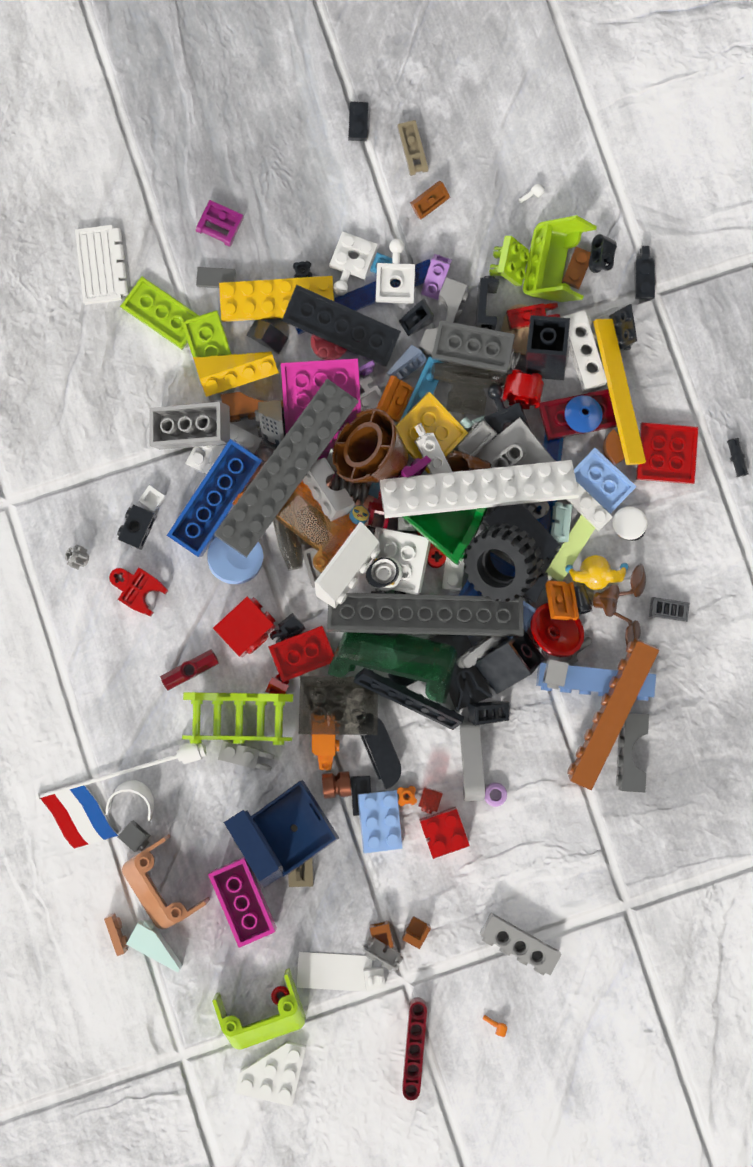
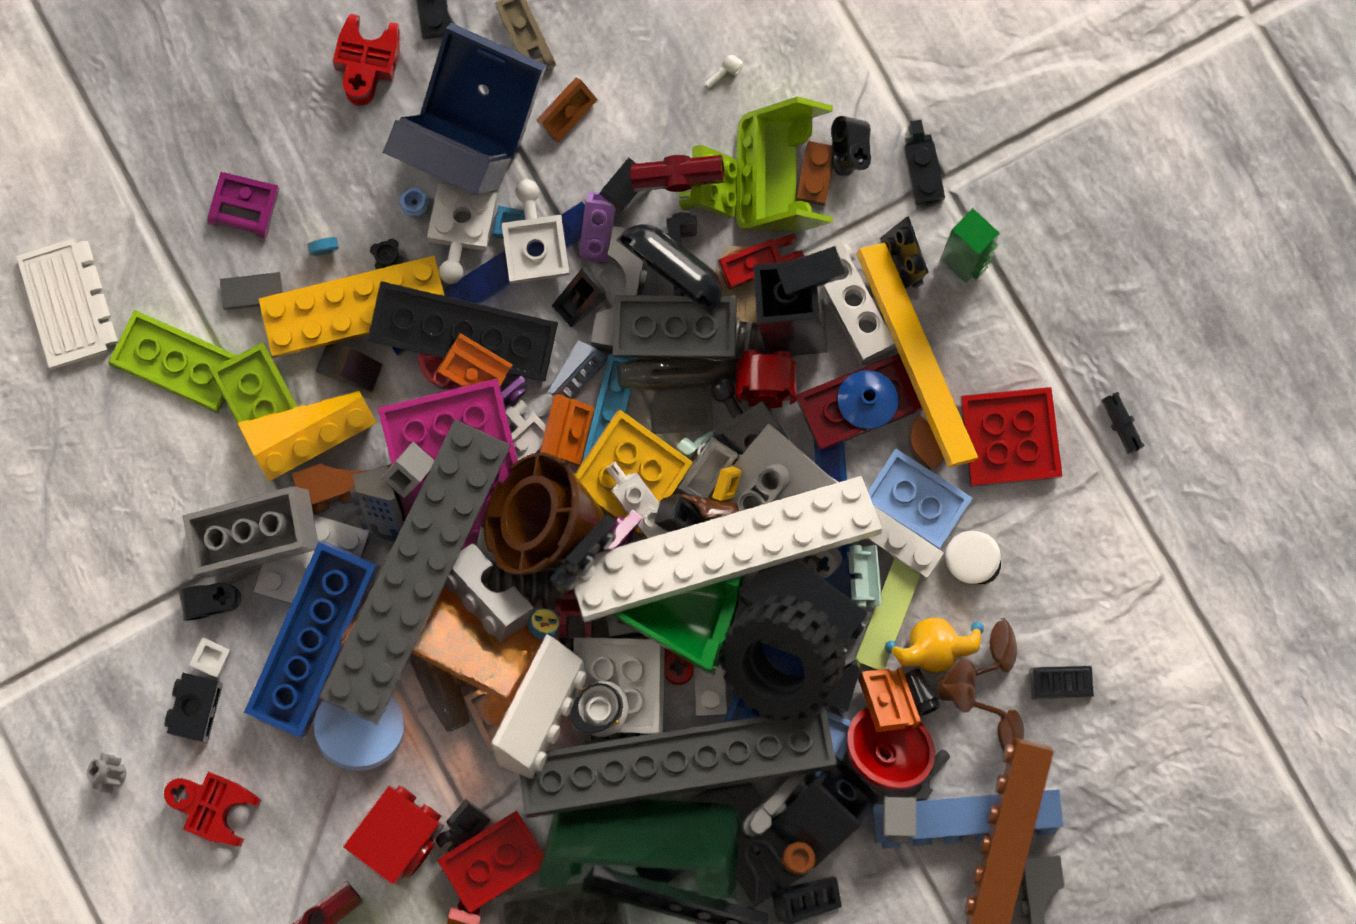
camera: 10 degrees left, 5 degrees down
(153, 463) = (203, 600): none -> black piece
(264, 258) = (323, 246): none -> dark azure tile
(293, 404) = (408, 470): none -> light grey brick
(311, 146) = (365, 59): none -> red piece
(325, 236) = (414, 194): none -> light blue plate
(343, 346) = (472, 363): none -> orange plate
(364, 200) = (460, 130): none -> dark blue container
(392, 477) = (584, 554): none -> black hinge
(451, 459) = (671, 511): none -> black slope
(459, 253) = (619, 188): none -> black slope
(480, 307) = (674, 264): none -> black brick
(487, 449) = (727, 483): none -> yellow tile
(489, 686) = (798, 858): none -> dark orange tile
(492, 250) = (677, 173): none -> dark red piece
(566, 325) = (811, 271): none -> black tile
(666, 329) = (970, 246): none -> green brick

